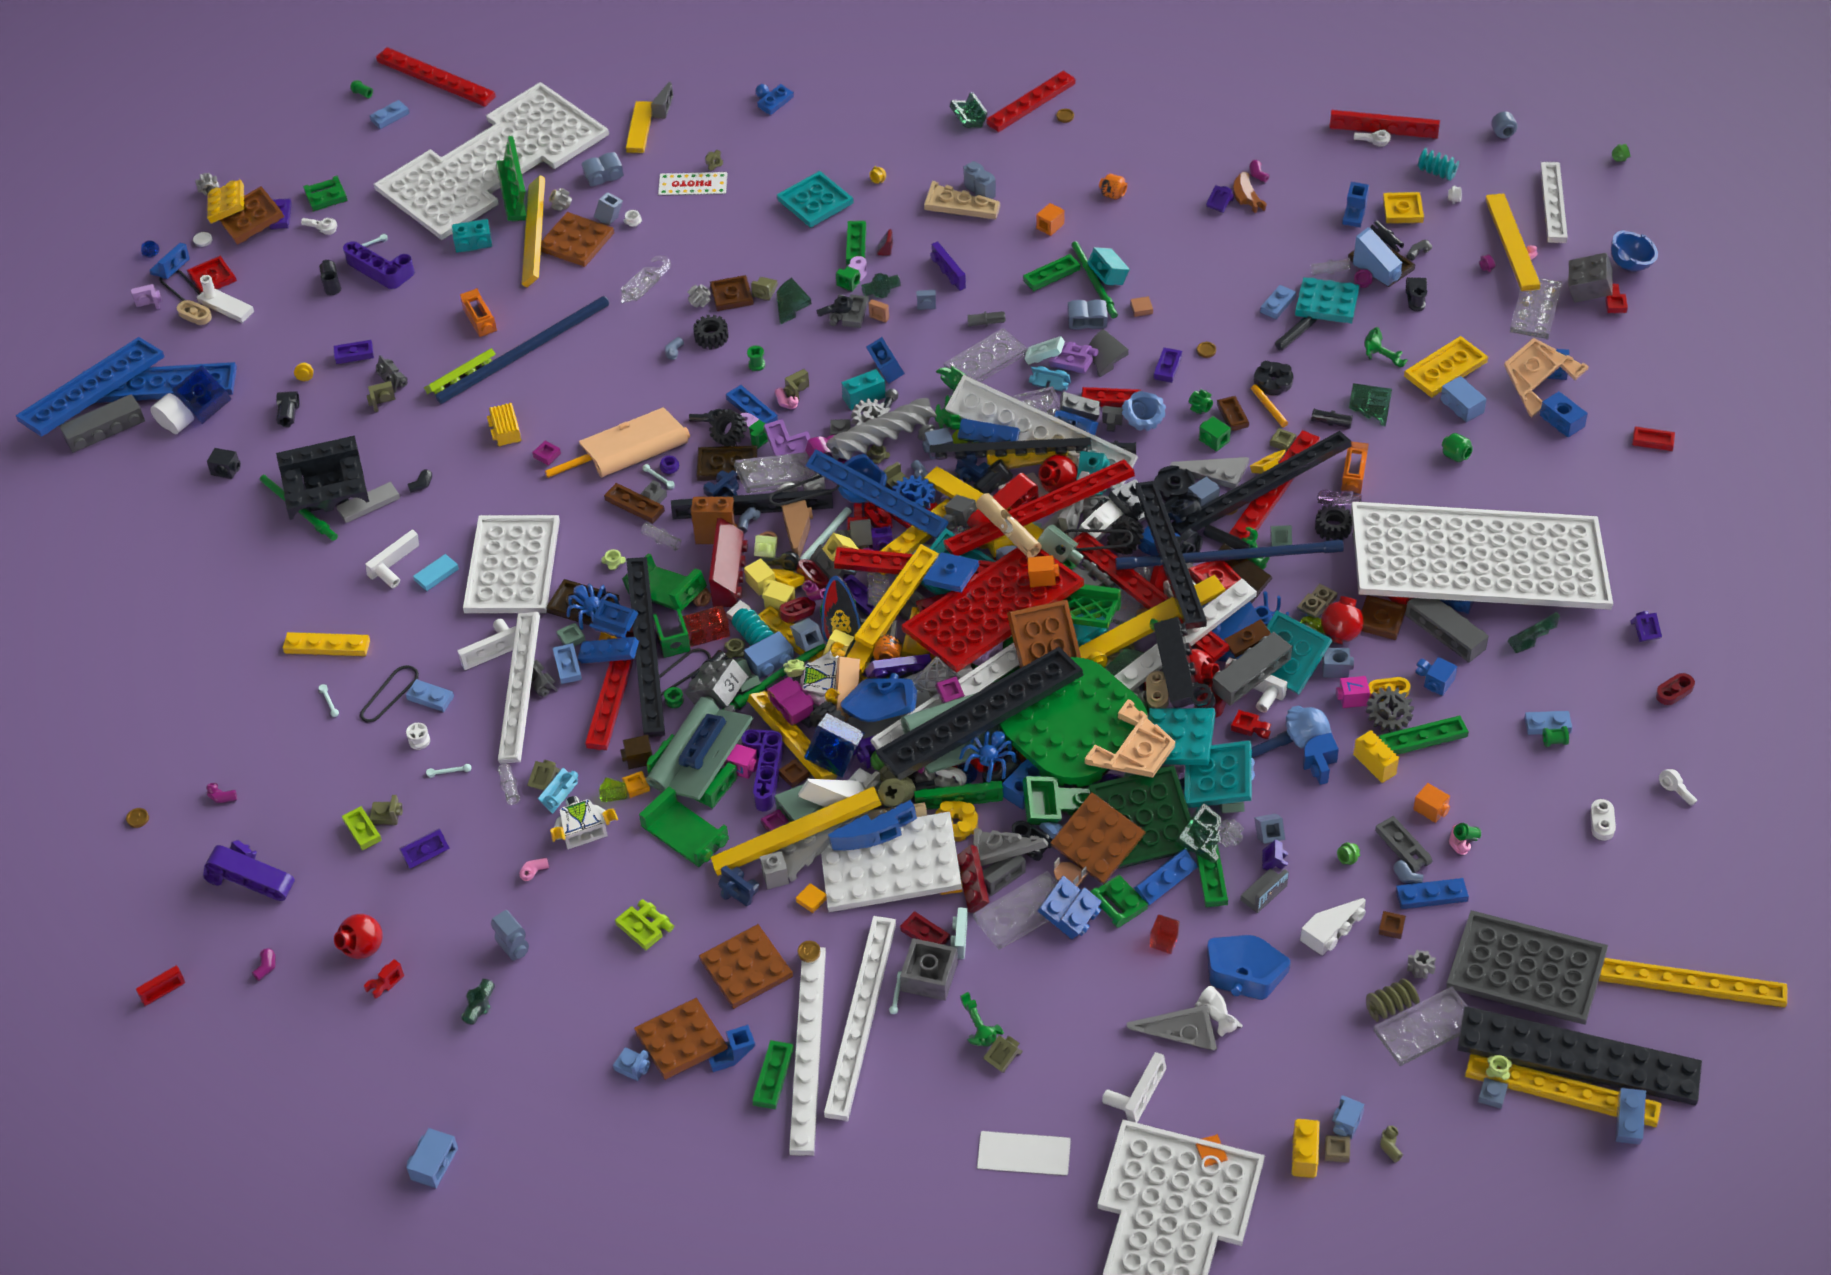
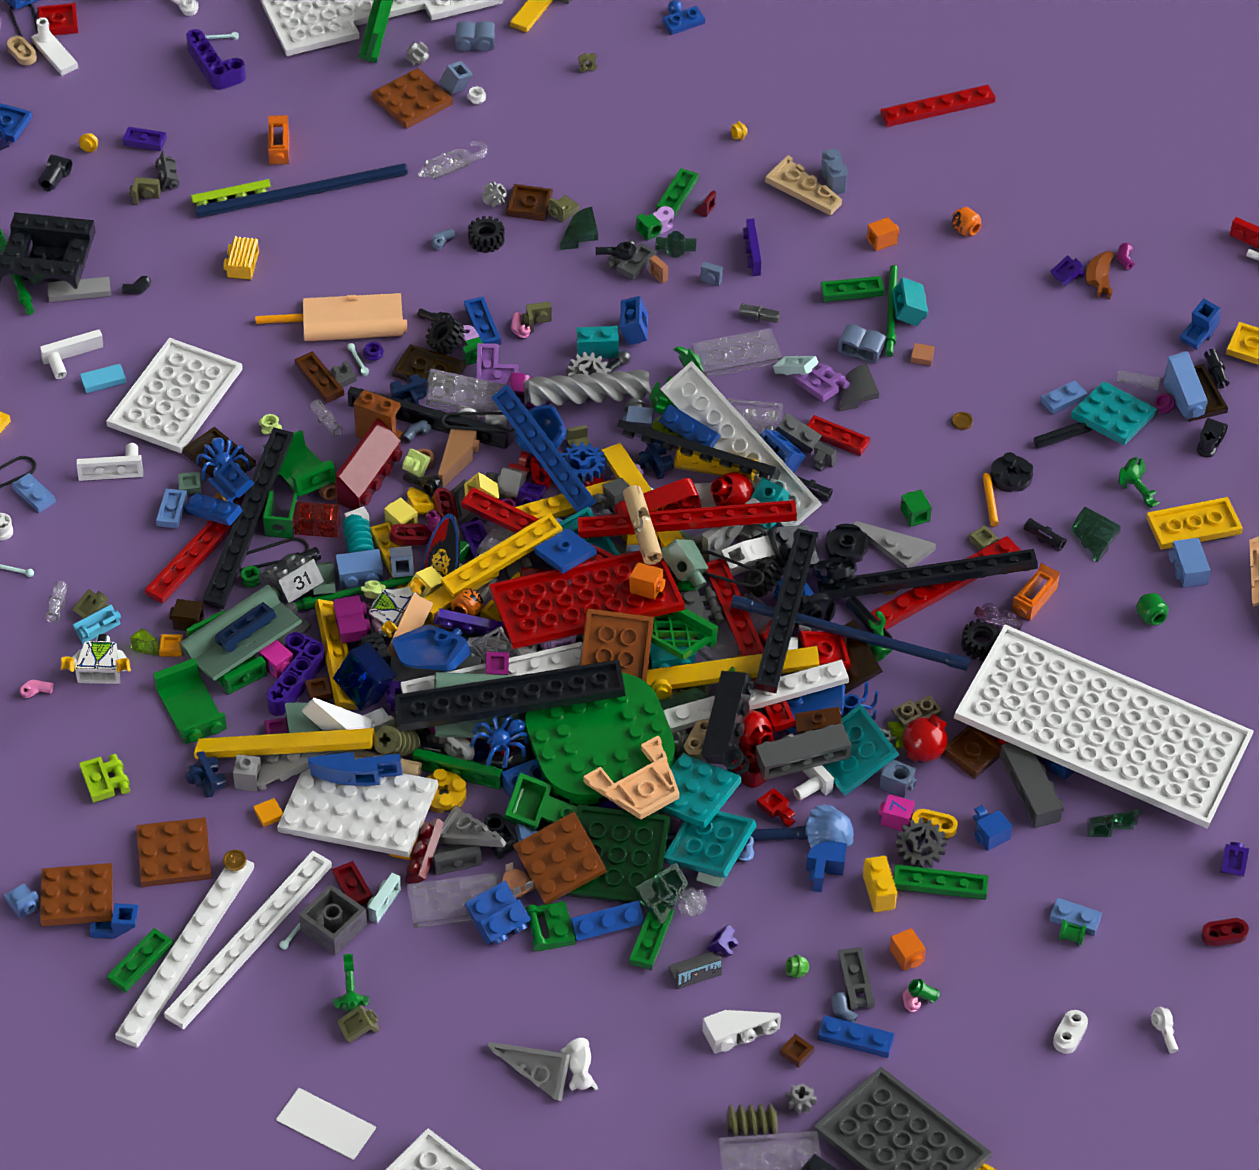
camera: 20 degrees right, 0 degrees up
(329, 277) = (161, 58): black piece -> none
(472, 235) = (315, 61): teal brick -> none
(518, 688) = (113, 514): white tile -> none
(533, 231) = (375, 76): yellow tile -> none
(543, 681) = (138, 510): dark grey hinge -> none
(546, 452) = (266, 299): magenta plate -> none
(693, 183) = (556, 79): white sticker -> none
(733, 644) = (332, 549): olive plate -> none
(756, 360) = (513, 275): green bush -> none
(758, 576) = (393, 488): light yellow brick -> none
(815, 199) = (663, 135): teal plate -> none
(827, 533) = (489, 468): light aqua bar -> none
(839, 425) = (554, 369): dark grey plate -> none
(878, 454) = (576, 411): olive plate -> none
(919, 469) = (607, 440): sand blue arm -> none
(969, 112) = (866, 96): clear green bracket -> none
(997, 475) = (673, 472): black piece -> none
(1058, 379) = (781, 390): medium azure hinge -> none
(1065, 115) = (964, 132): pearl gold piece -> none
(1144, 410) = (855, 459): medium blue hair -> none
(1145, 1088) = (465, 1111): white piece -> none
(1164, 934) = (572, 973): clear red panel -> none
(1167, 365) = (911, 422): dark purple plate -> none
(1200, 401) = (920, 471): green gear -> none
(1205, 490) = (869, 561): sand blue brick -> none
(1233, 413) = (947, 494): reddish brown plate -> none
(1245, 965) = (634, 1033): blue animal -> none
(1267, 462) = (952, 555): yellow plate -> none
(1269, 828) = (732, 912): sand blue brick -> none
(1281, 535) = (919, 633): sand green plate -> none
(1416, 248) = (1239, 391): dark grey arm -> none

